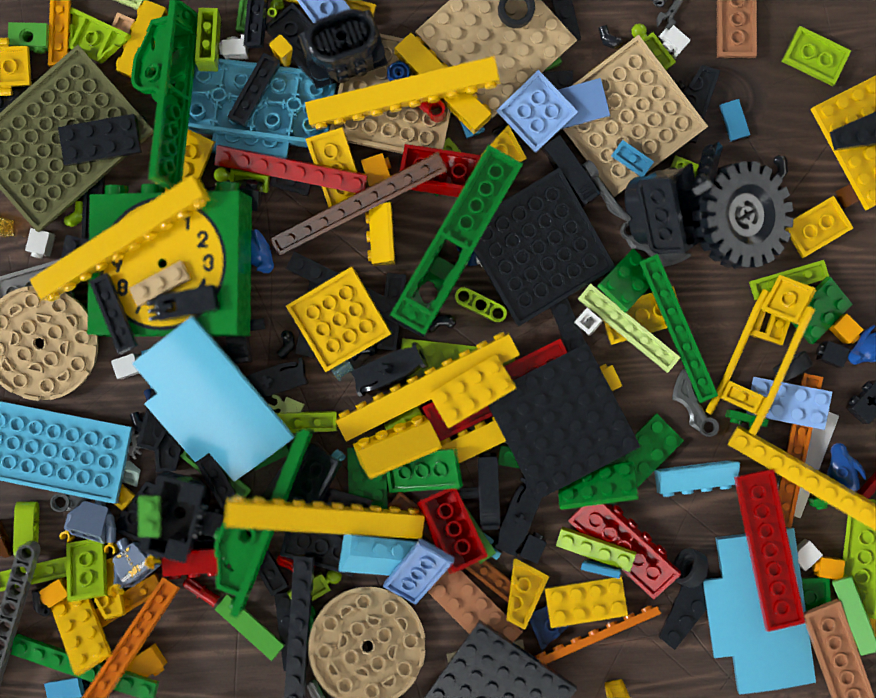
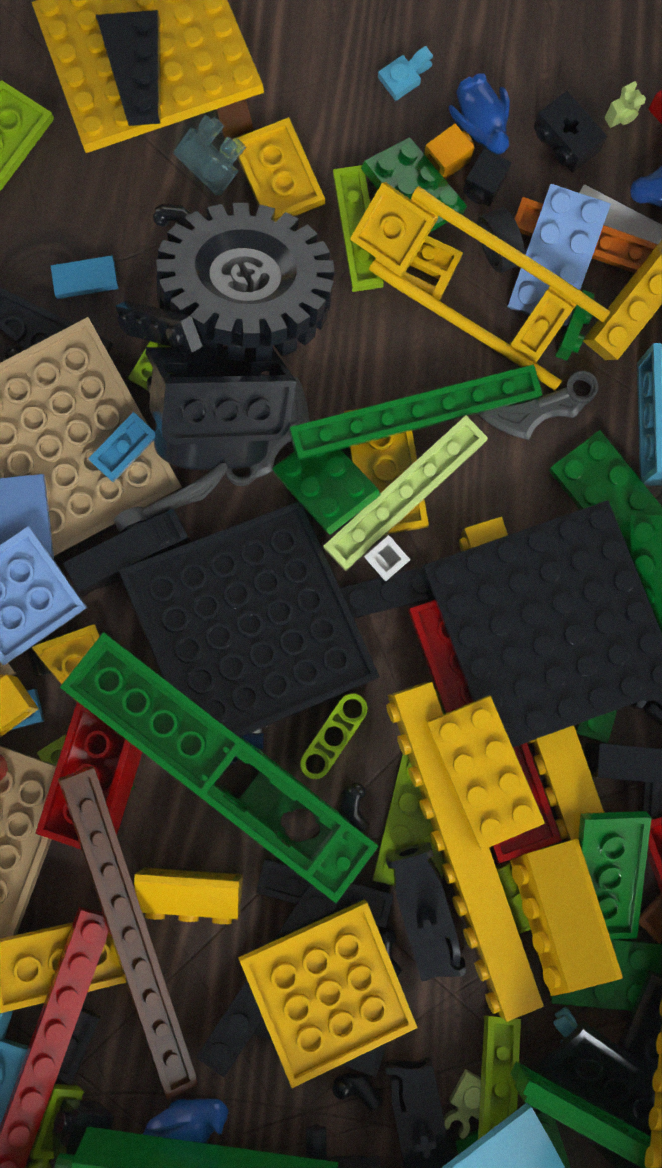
camera: 90 degrees left, 5 degrees down
(342, 369) = (415, 994): clear light blue bush -> none
(376, 168) = (70, 888): light orange brick -> none
(817, 182) = (205, 160): none -> clear light blue plate

